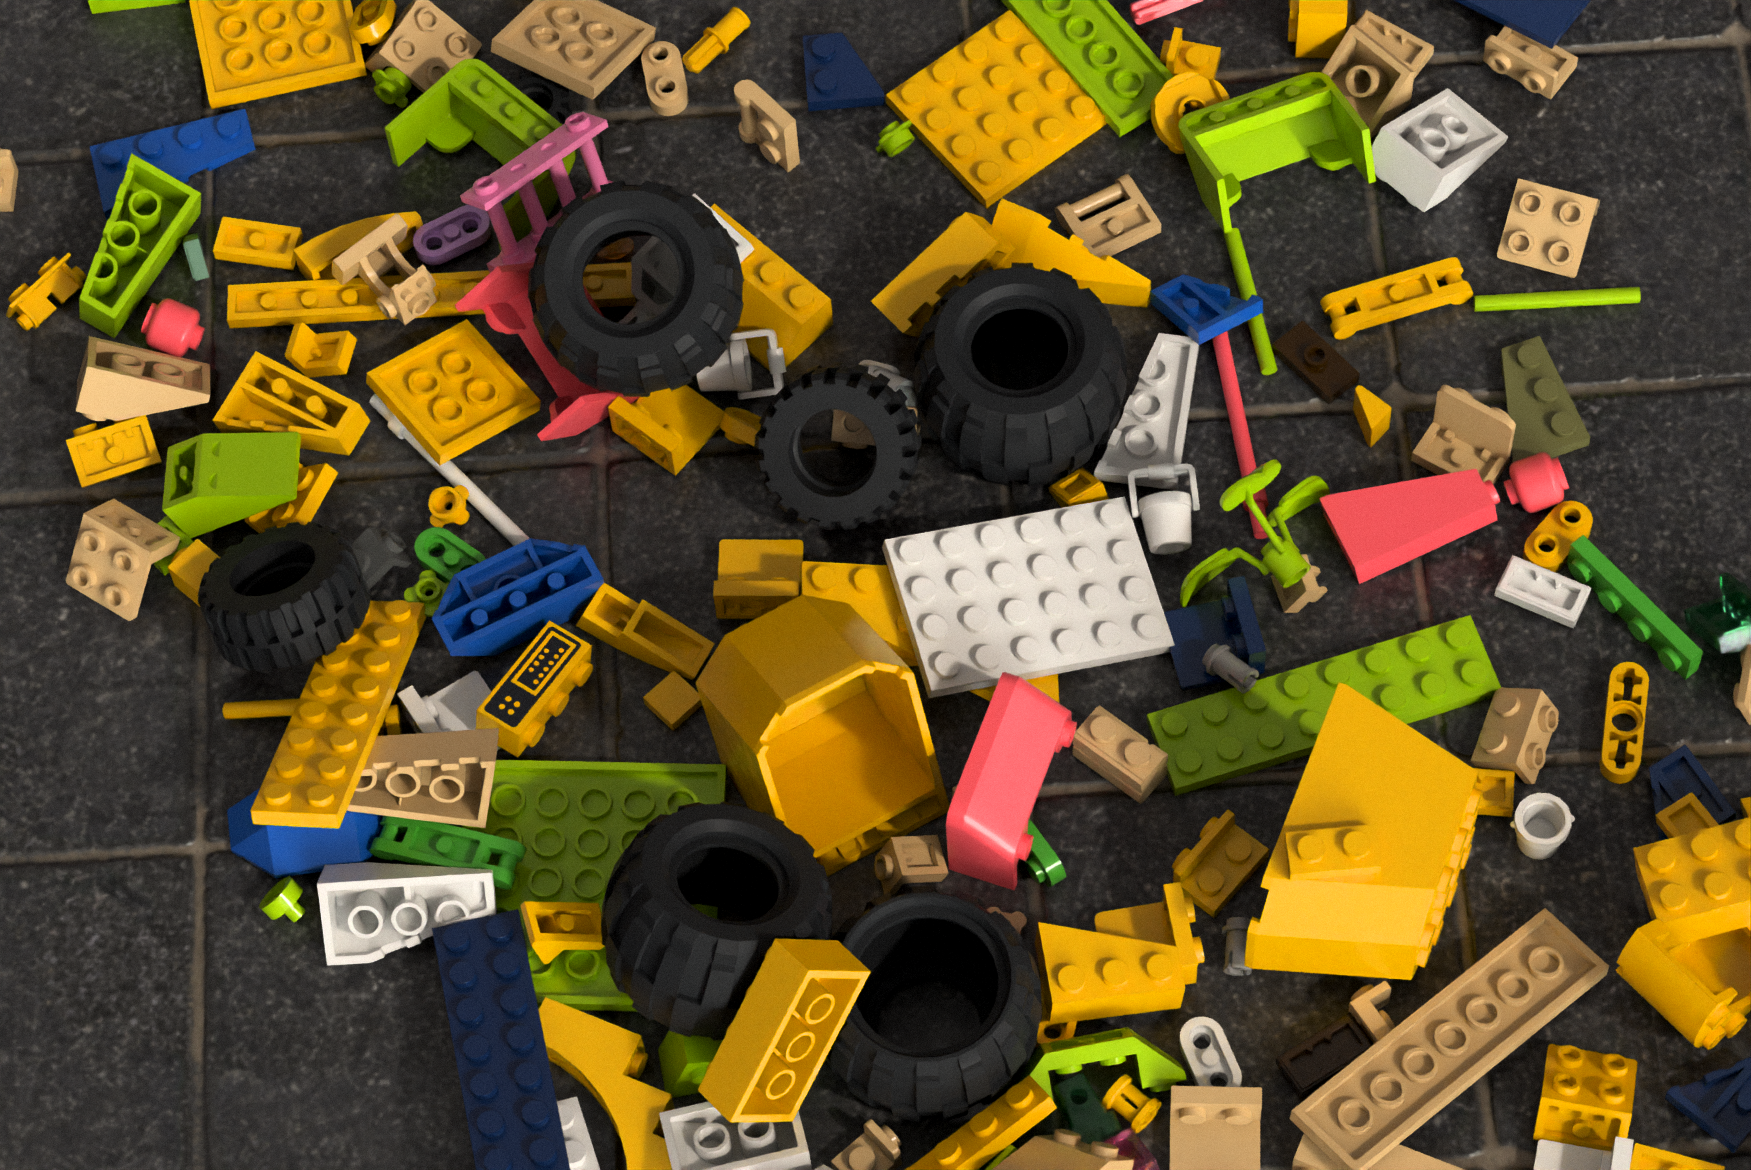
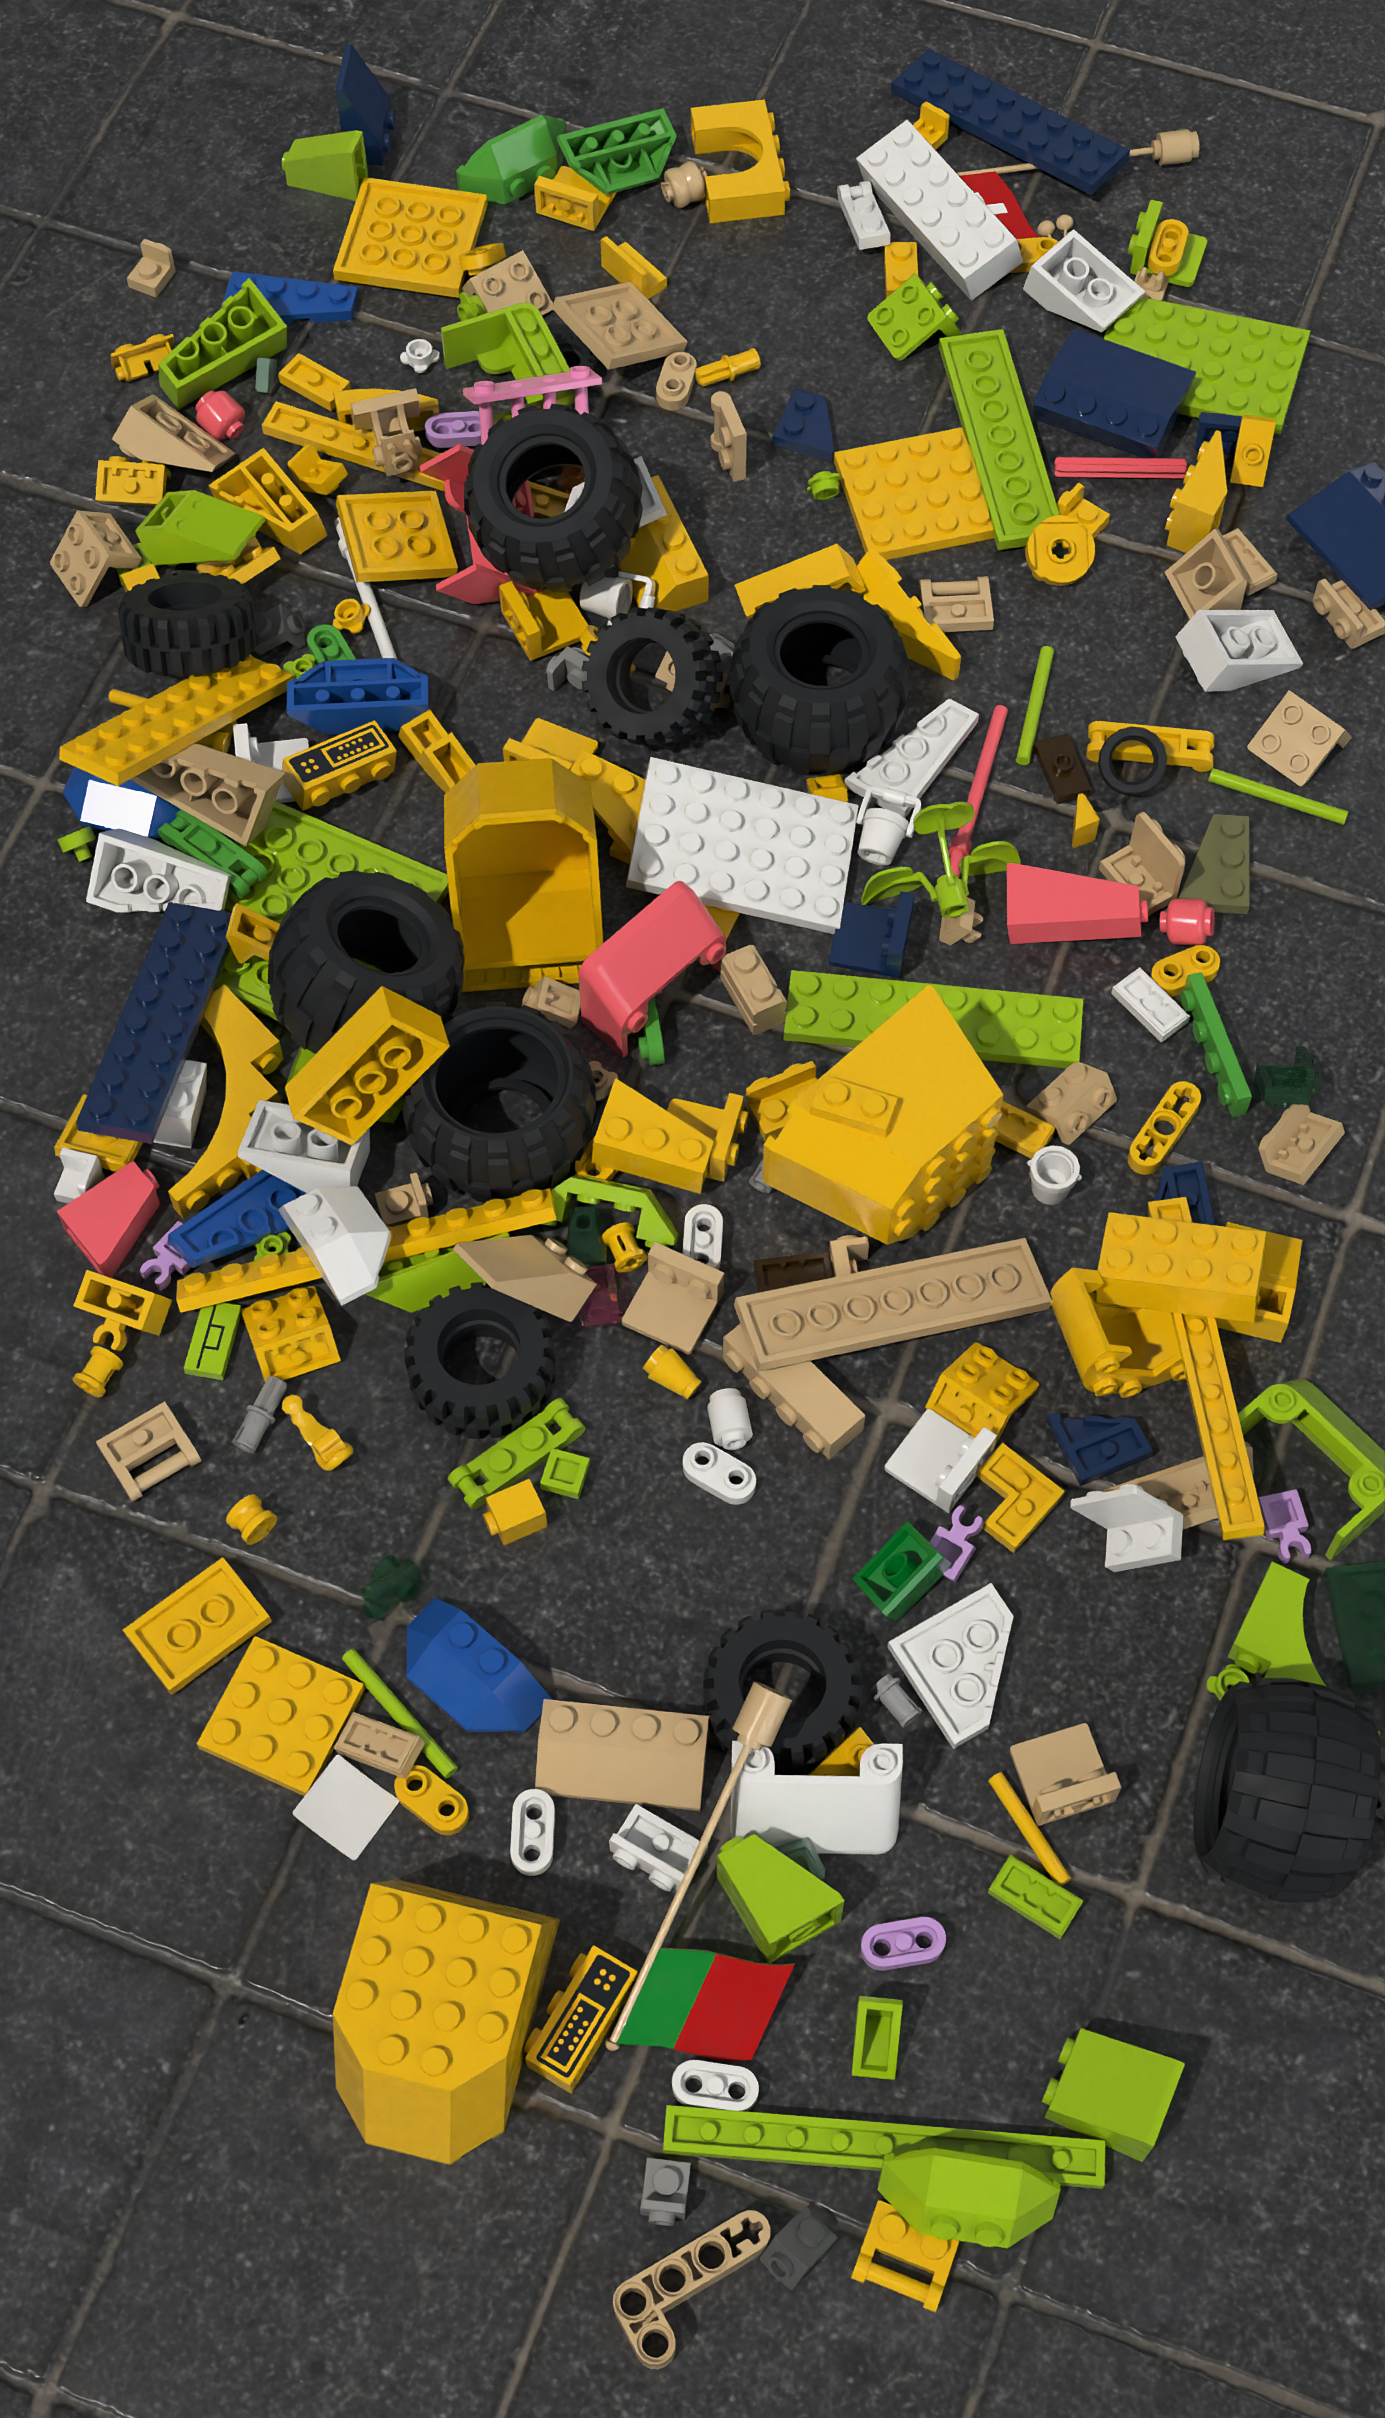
camera: 20 degrees right, 0 degrees up
(359, 154) = (419, 355): none -> white plate
(673, 700) = (433, 818): yellow tile -> none
(733, 465) = (566, 666): none -> light grey bracket
(1203, 308) = (993, 694): blue wing -> none
(1222, 662) = (867, 953): light grey pin -> none
(1269, 131) = (1111, 586): lime windscreen -> none
(1422, 328) = (1159, 762): none -> black tyre

